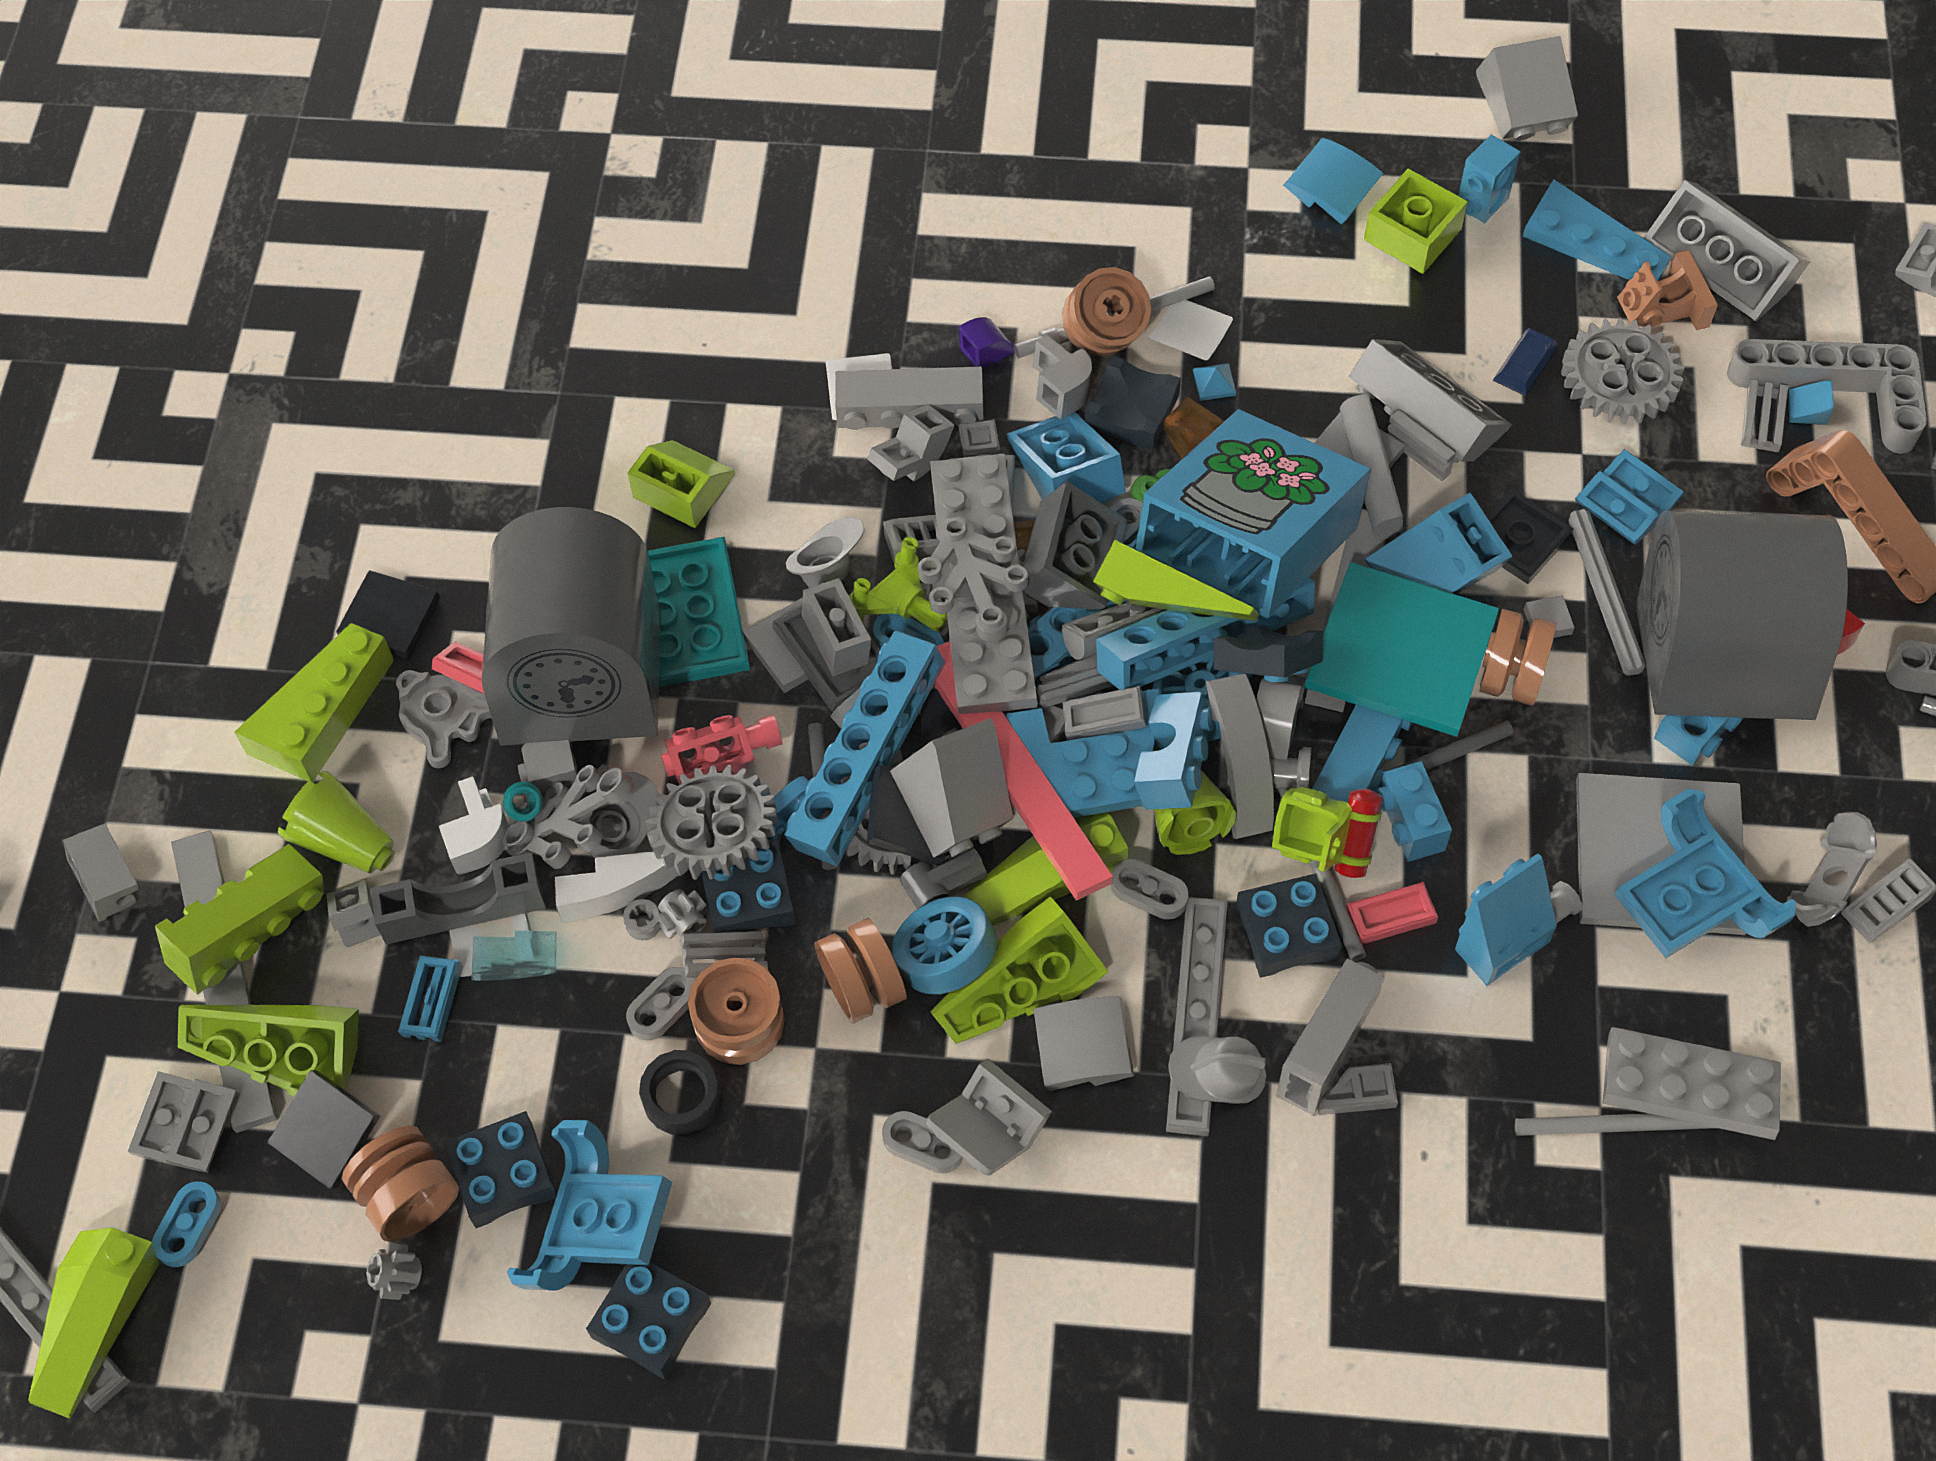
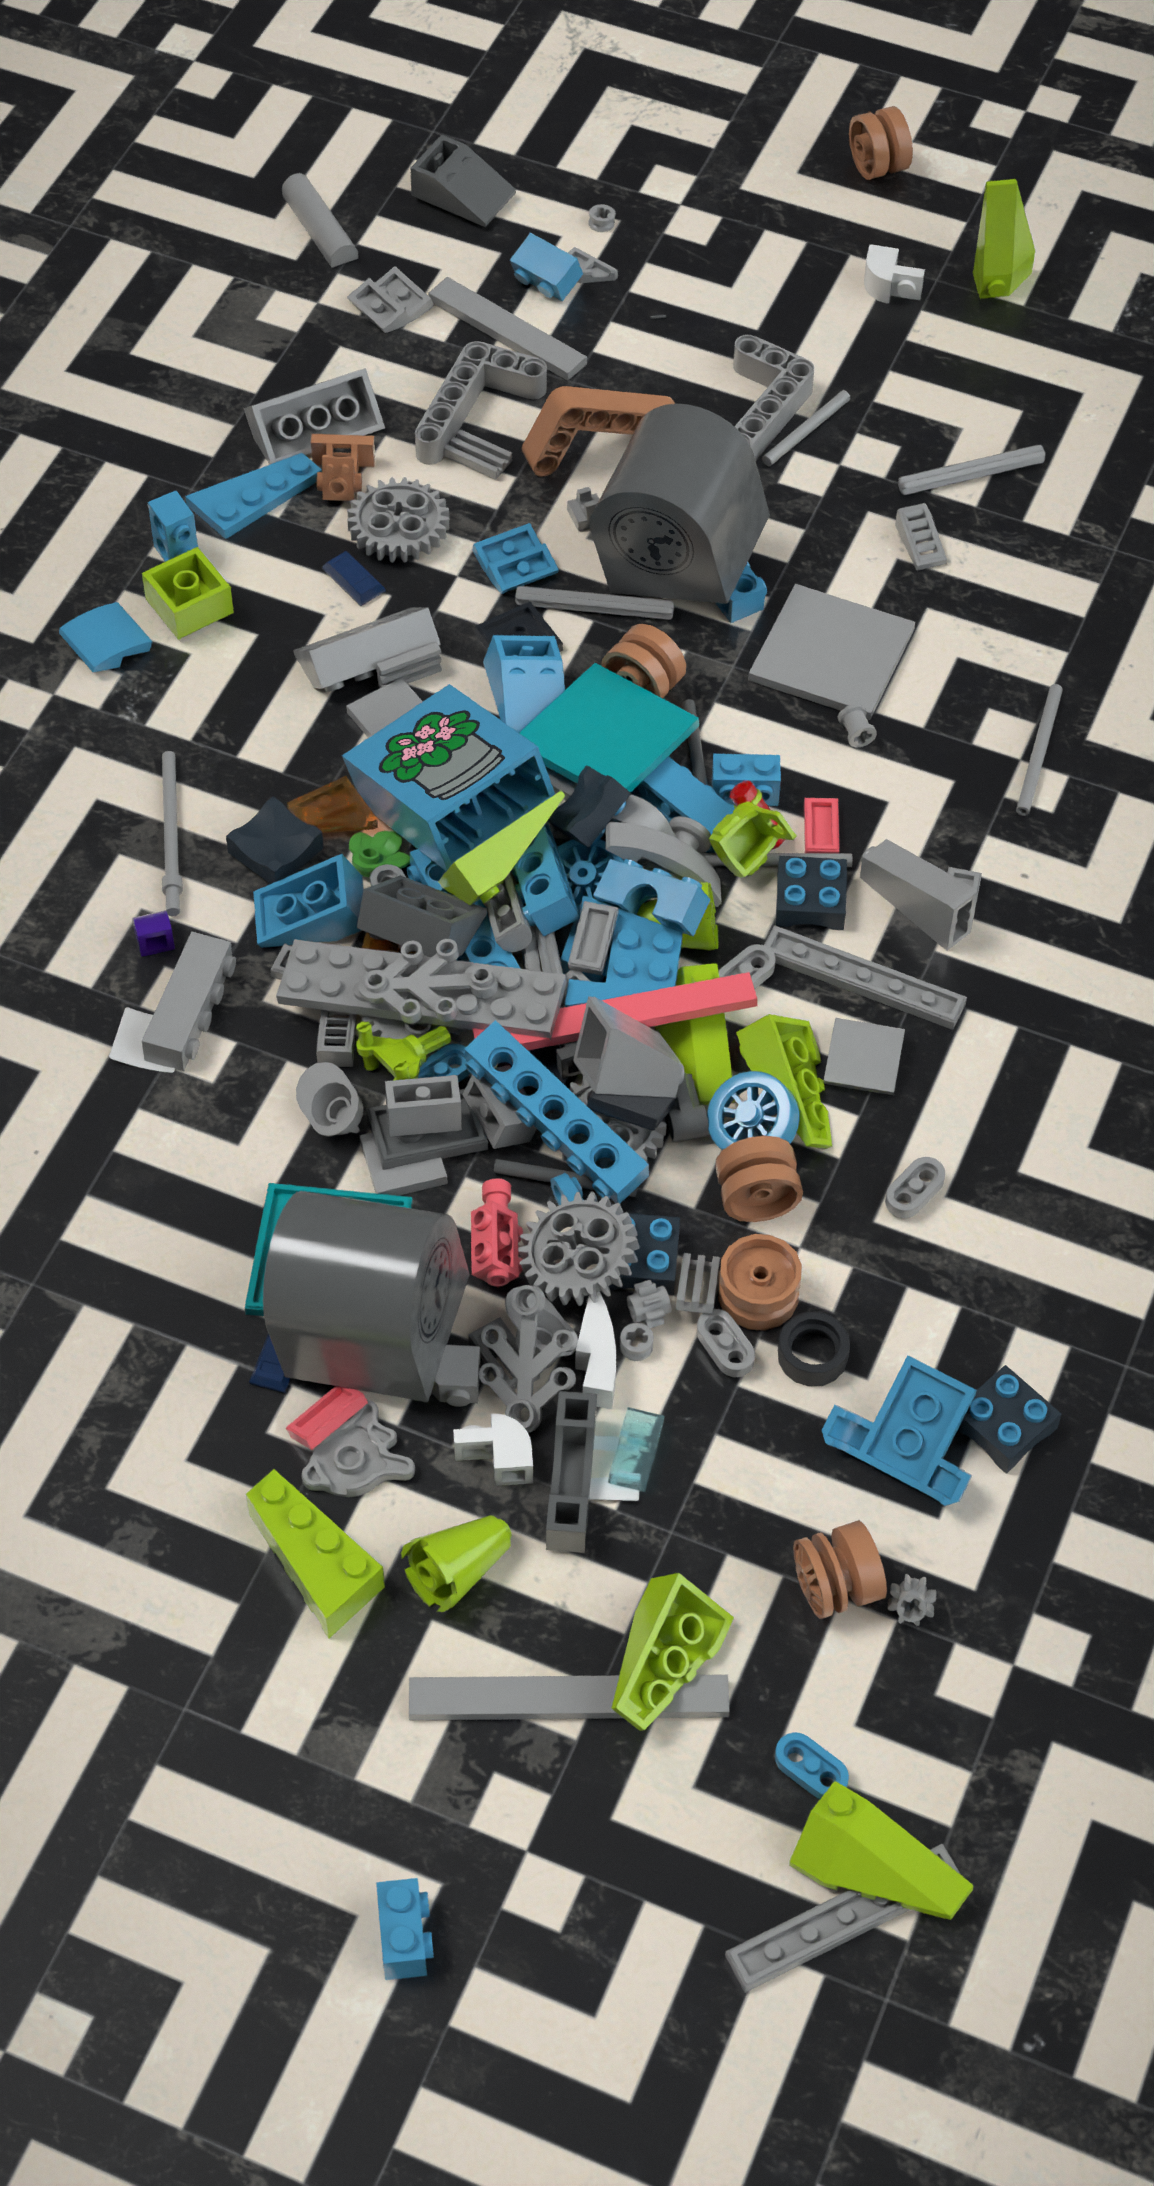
camera: 75 degrees left, 5 degrees down
(101, 871) = (419, 1782): light grey hinge -> none
(182, 1122) = (709, 1752): light grey slope -> none
(239, 918) = (530, 1654): lime wedge -> none
(323, 1128) = (759, 1631): tile -> none
(352, 913) = (545, 1566): light grey slope -> none
(392, 610) = (222, 1477): black tile -> none
(444, 1003) = (647, 1538): dark azure tile -> none
(500, 1169) = (840, 1494): black brick -> none
(532, 801) = (493, 1397): teal cone -> none
(678, 481) = (197, 1199): lime slope -> none
(918, 441) = (245, 1007): light grey brick -> none
(979, 438) = (252, 967): light grey tile -> none
(990, 1120) = (914, 1129): light grey bracket -> none
(1062, 377) = (225, 876): light grey brick -> none
(1111, 292) = (180, 825): nougat wheel -> none
(1191, 329) = (208, 785): white sticker -> none
(1214, 382) = (271, 784): dark azure slope -> none
(1218, 1069) = (918, 971): light grey piece -> none
(1368, 450) = (403, 694): light grey brick -> none
(1507, 920) = (868, 751): dark azure slope -> none
(1528, 88) = (88, 477): light grey slope -> none
(1553, 610) = (600, 643): light grey tile -> none
(1692, 1083) = (1024, 696): light grey plate -> none
(1698, 884) = (881, 630): dark azure piece -> none
(1811, 403) = (482, 420): dark azure slope -> none
(1850, 847) = (871, 540): light grey piece -> none

